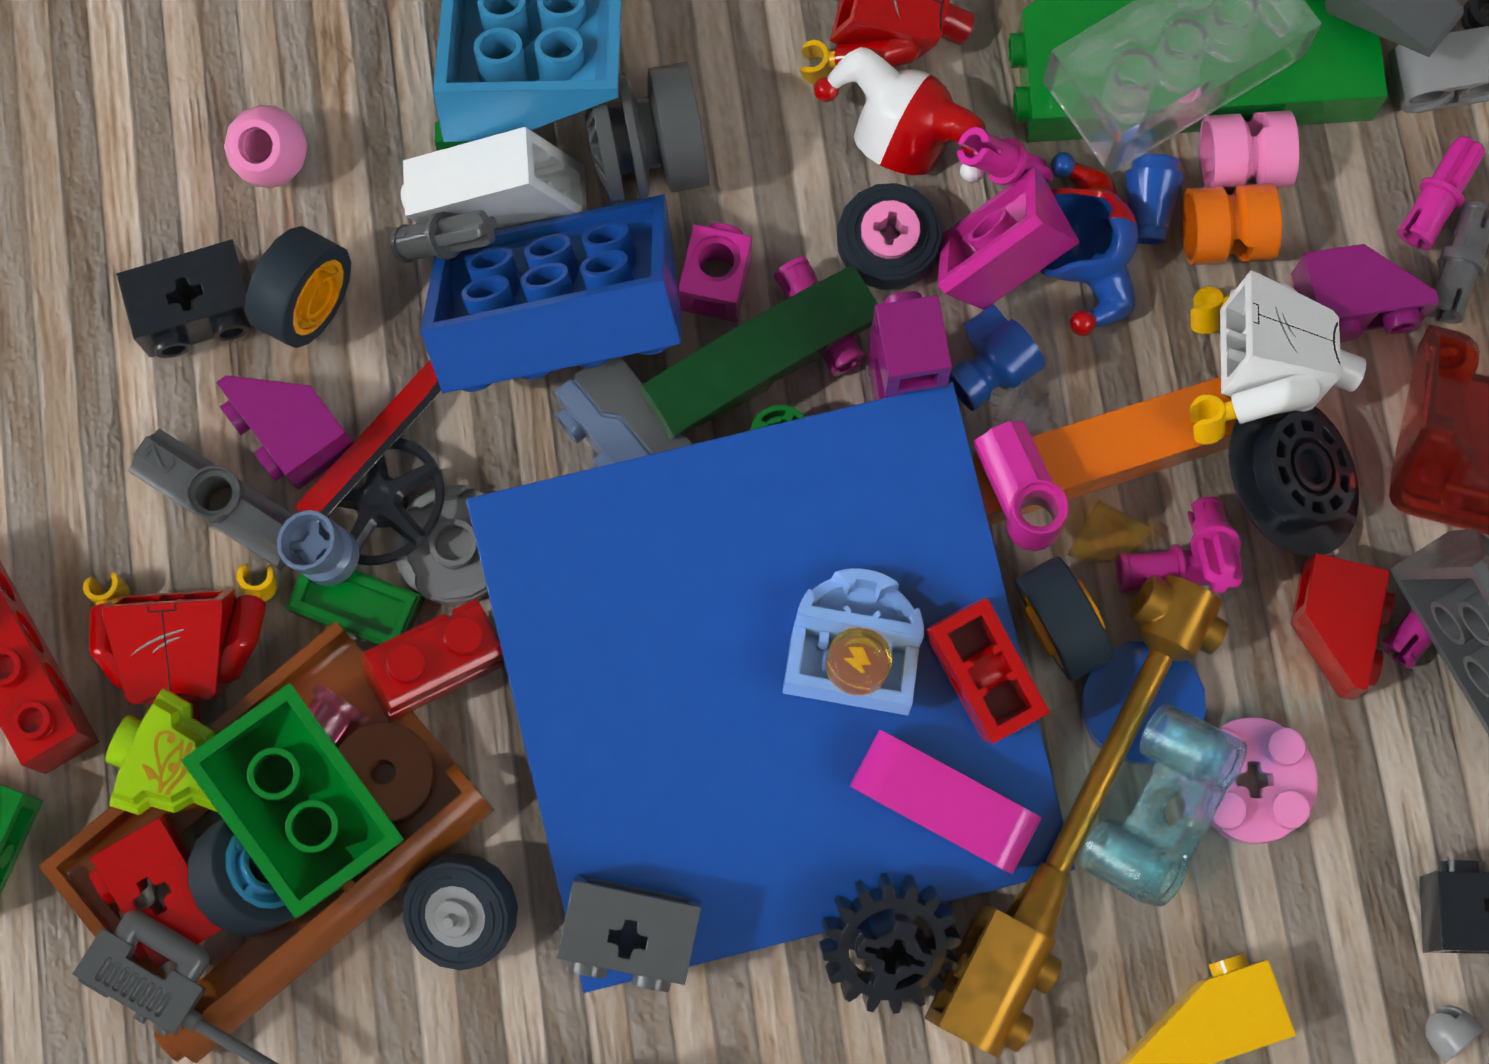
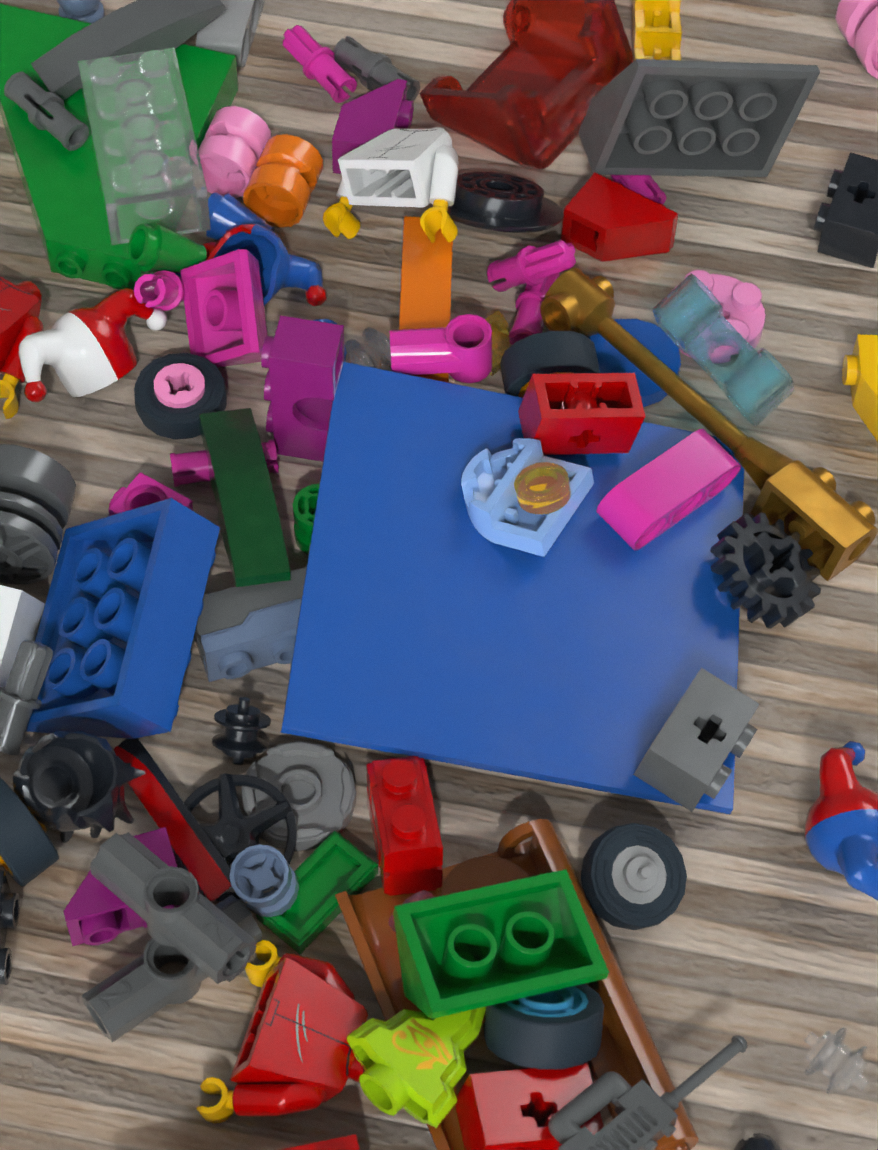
camera: 75 degrees left, 20 degrees down
(225, 507) = (193, 928): none -> dark grey piece
(354, 327) = (74, 783): none -> black hair
(495, 461) = (241, 731): none -> black wheel
(1050, 139) = (161, 249): none -> green cone

